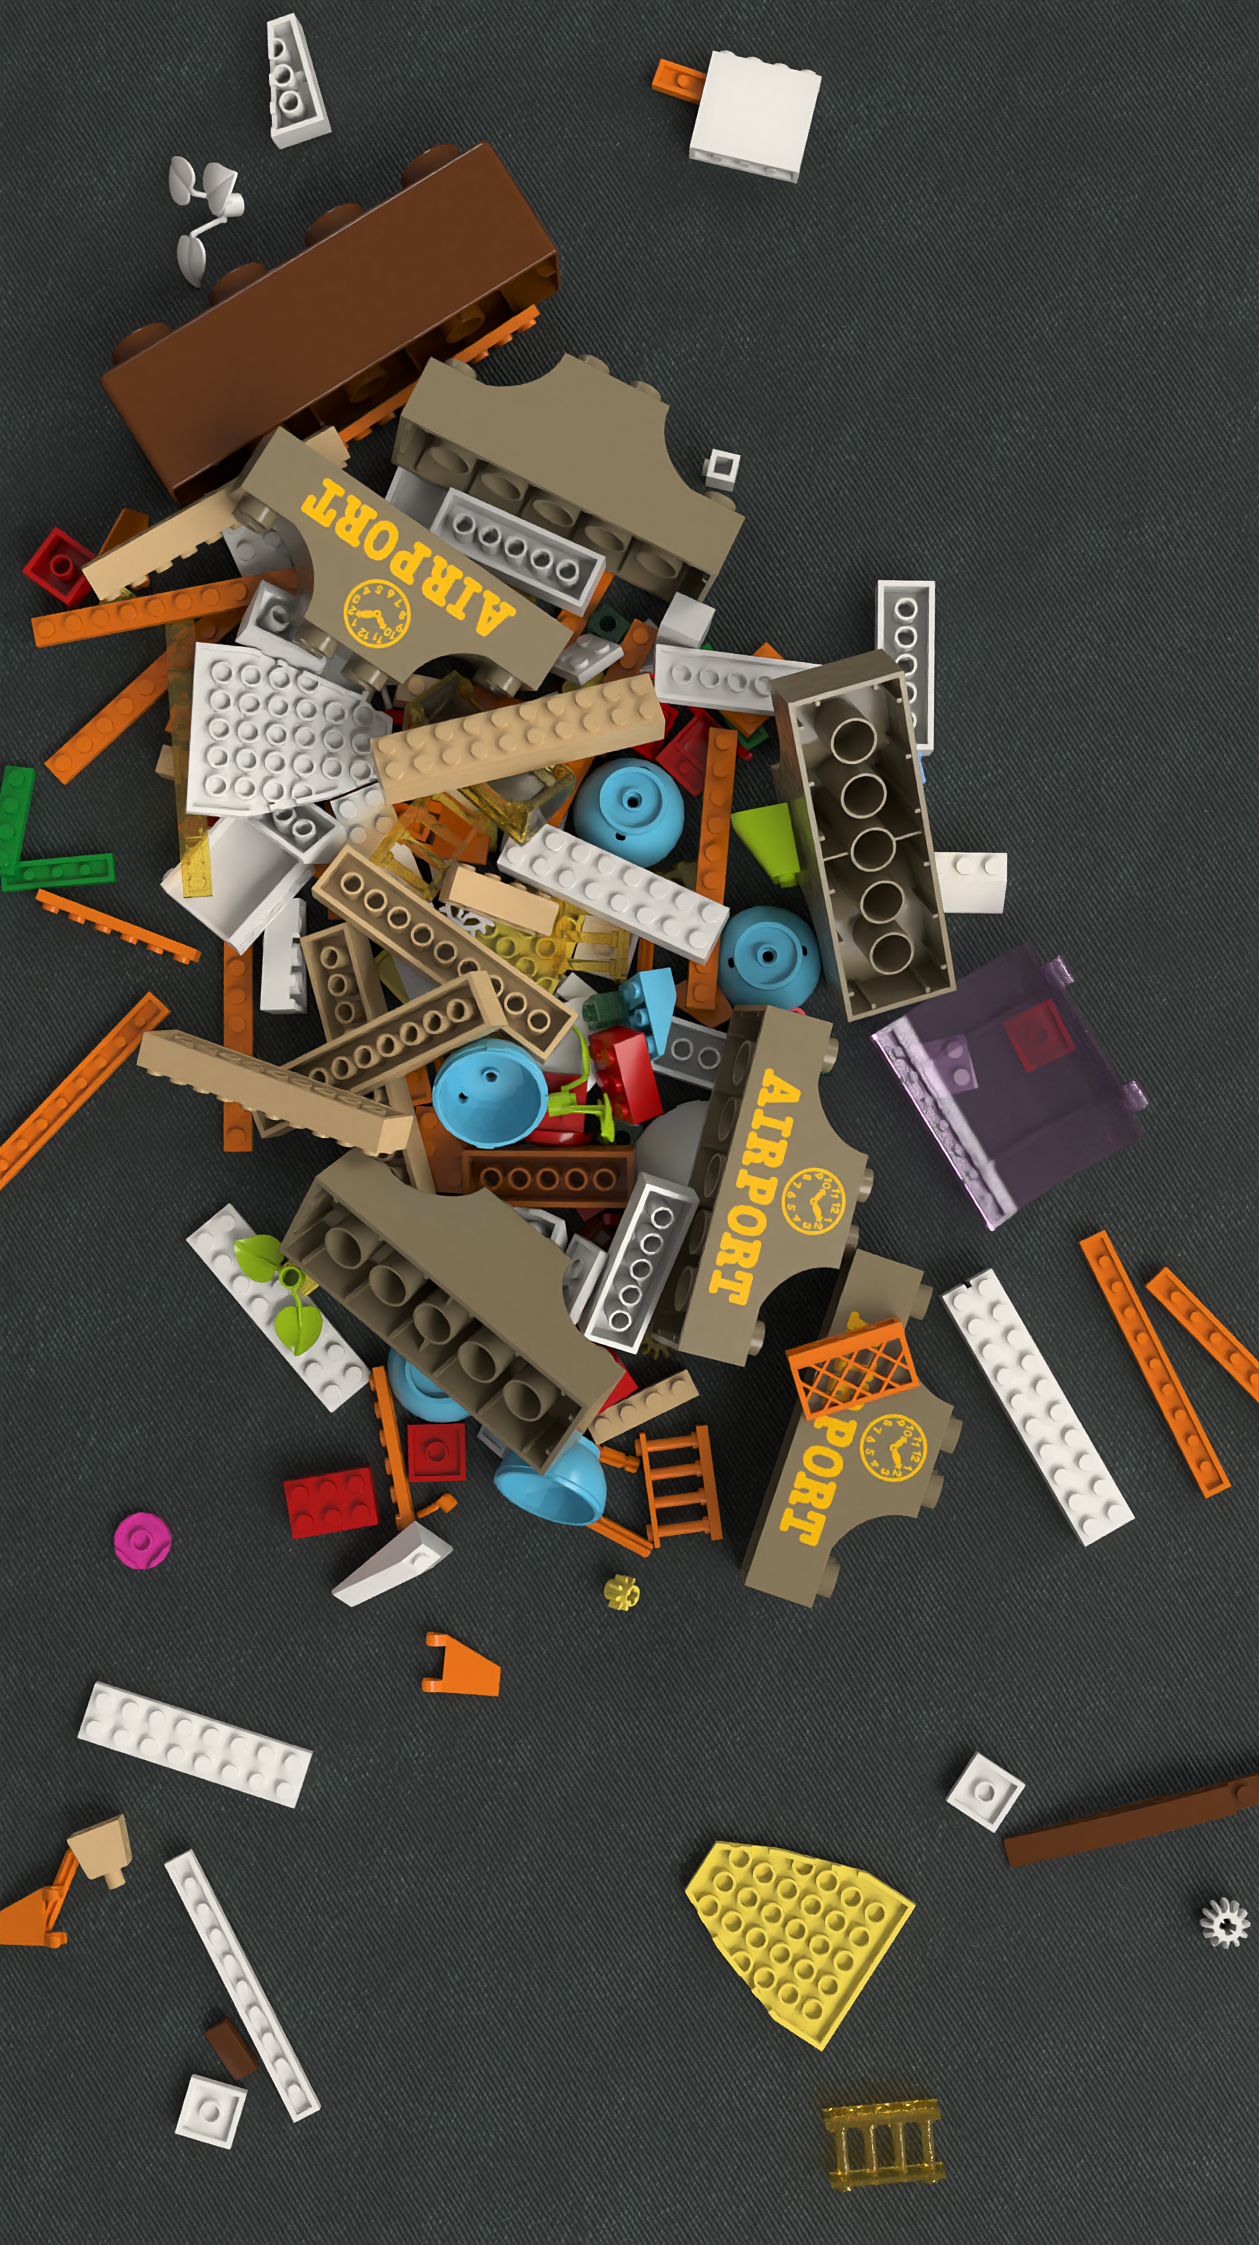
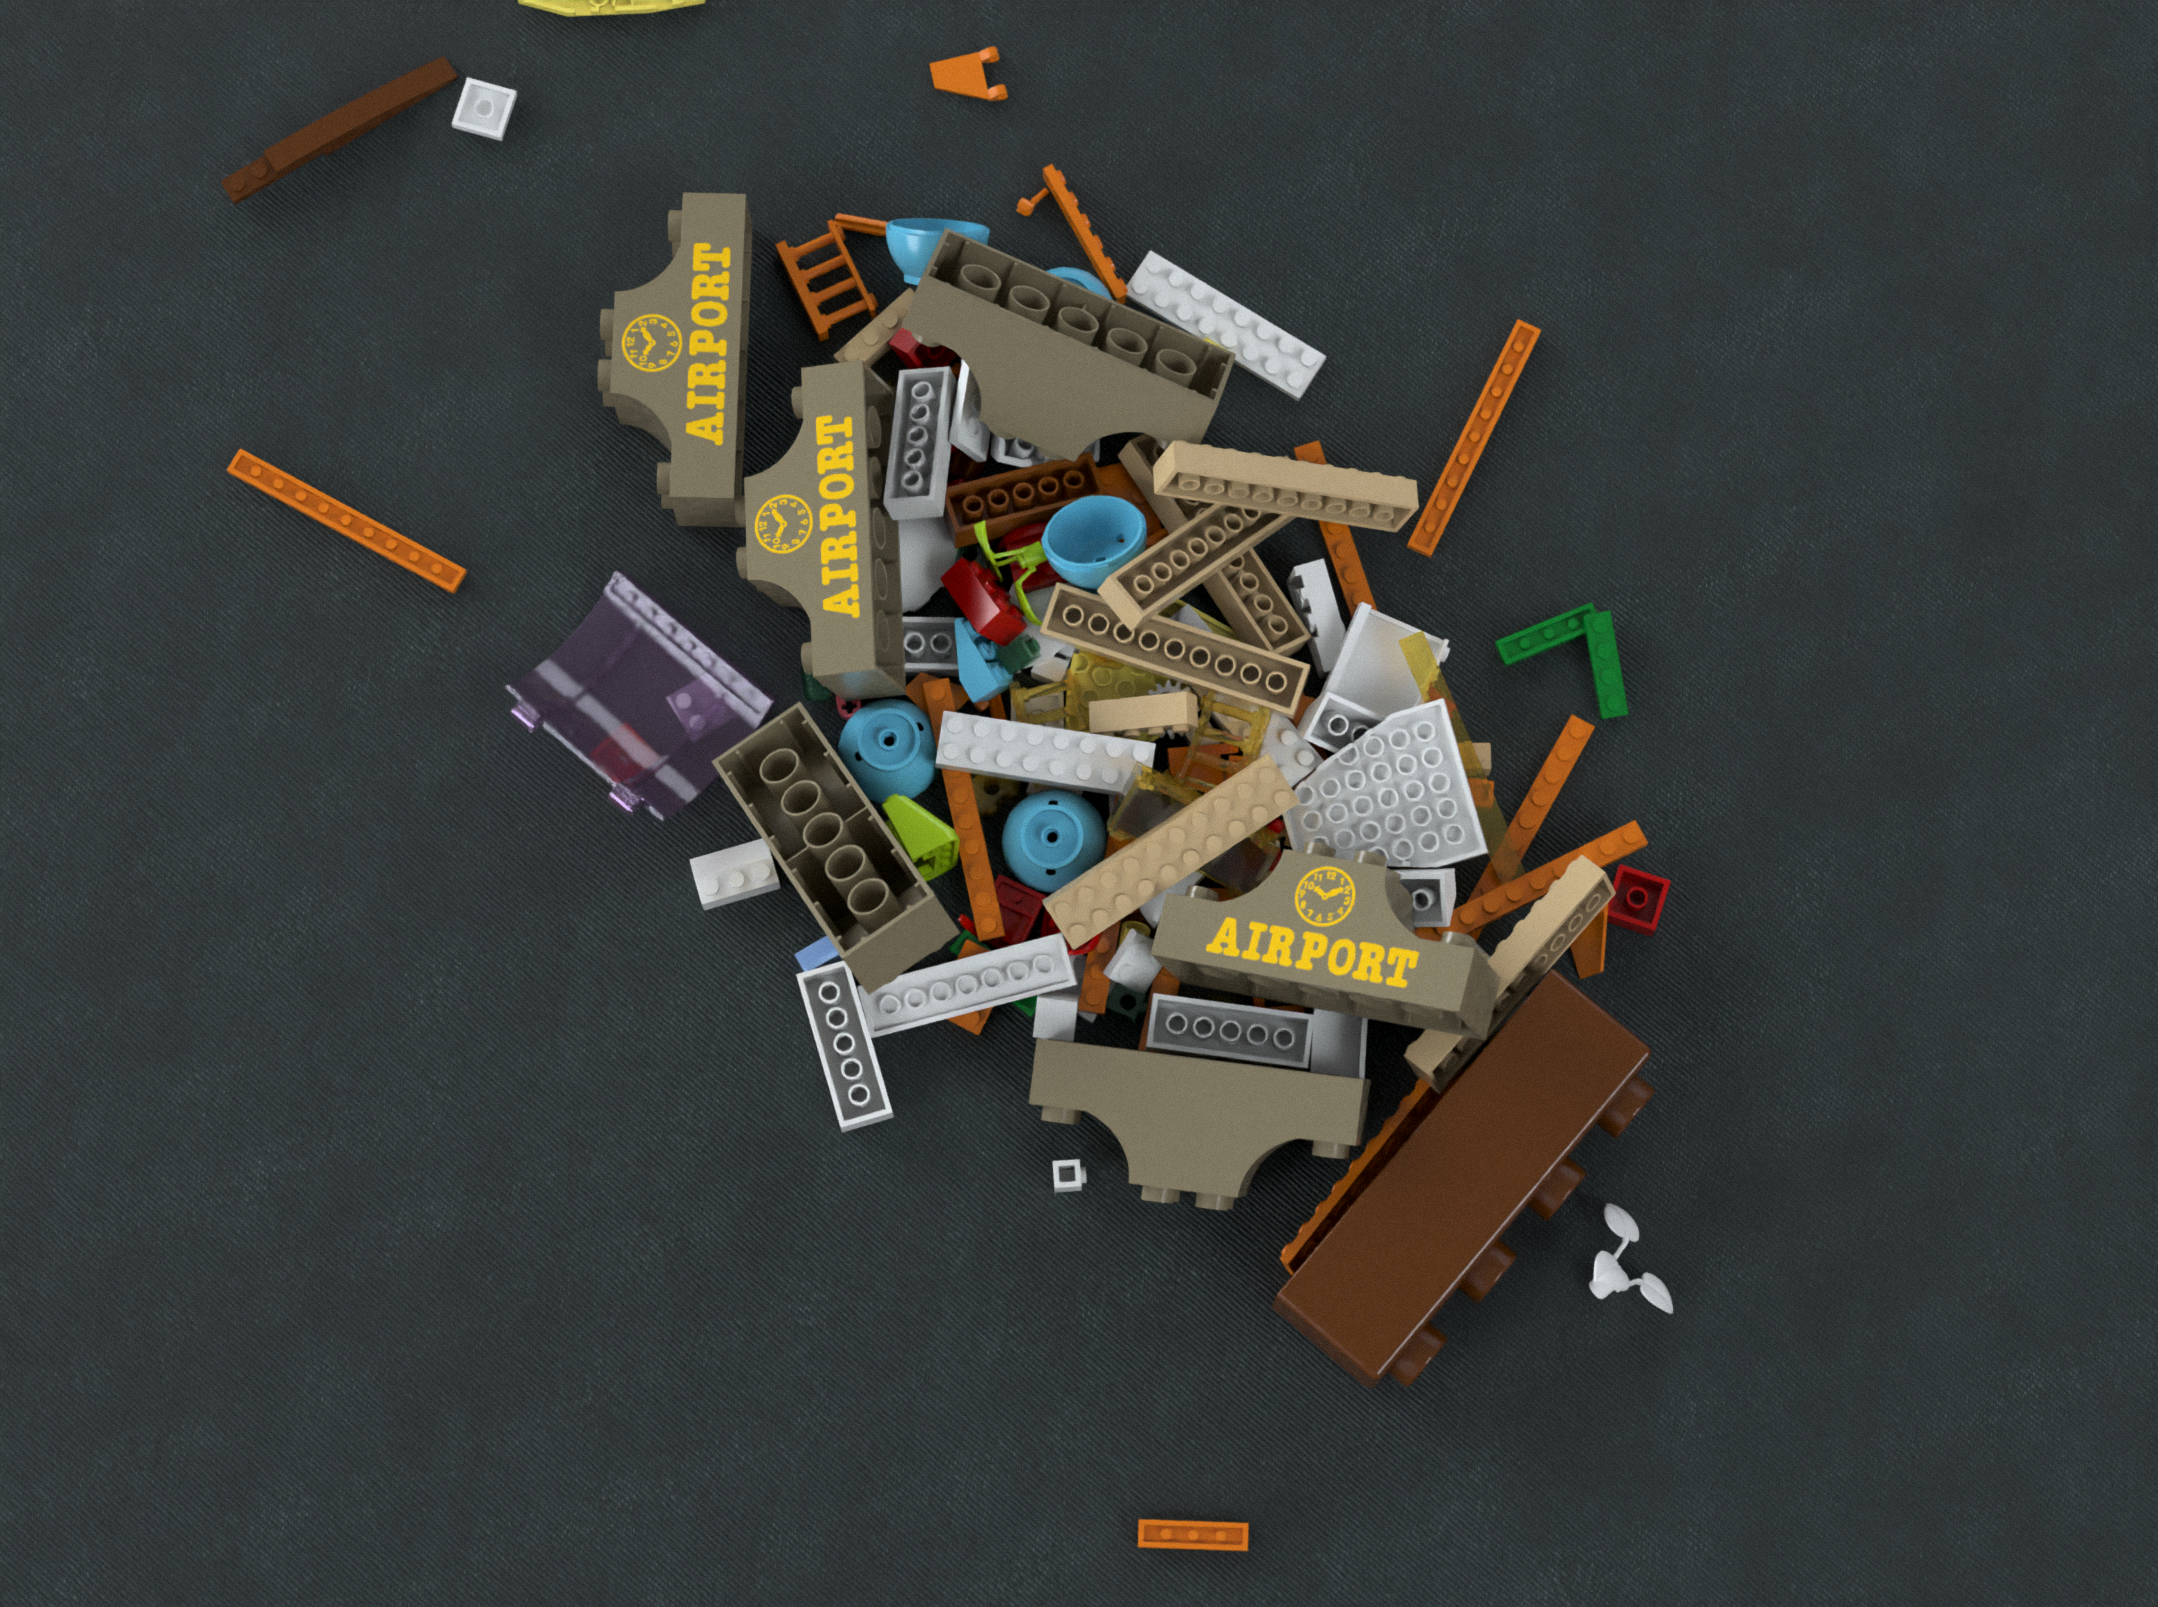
camera: 160 degrees right, 10 degrees down
(107, 923) = (1489, 603): orange plate -> none
(142, 1540) = (1278, 98): dark pink tile -> none
(295, 93) = (1582, 1415): white wedge -> none
(295, 1326) = (1205, 310): lime plant -> none
(332, 1501) = (1124, 176): red brick -> none
(400, 1560) = (1050, 141): white wedge -> none
(437, 1452) = (1047, 243): red plate -> none
(618, 1459) = (889, 287): orange axle -> none
(621, 1592) = (849, 176): light yellow gear -> none
(754, 116) = (1142, 1524): white panel -> none
(843, 1344) = (716, 414): orange fence -> none
(1036, 1407) = (534, 438): white piece -> none
(1154, 1364) = (440, 507): orange plate -> none
(1217, 1915) = (244, 54): white gear -> none

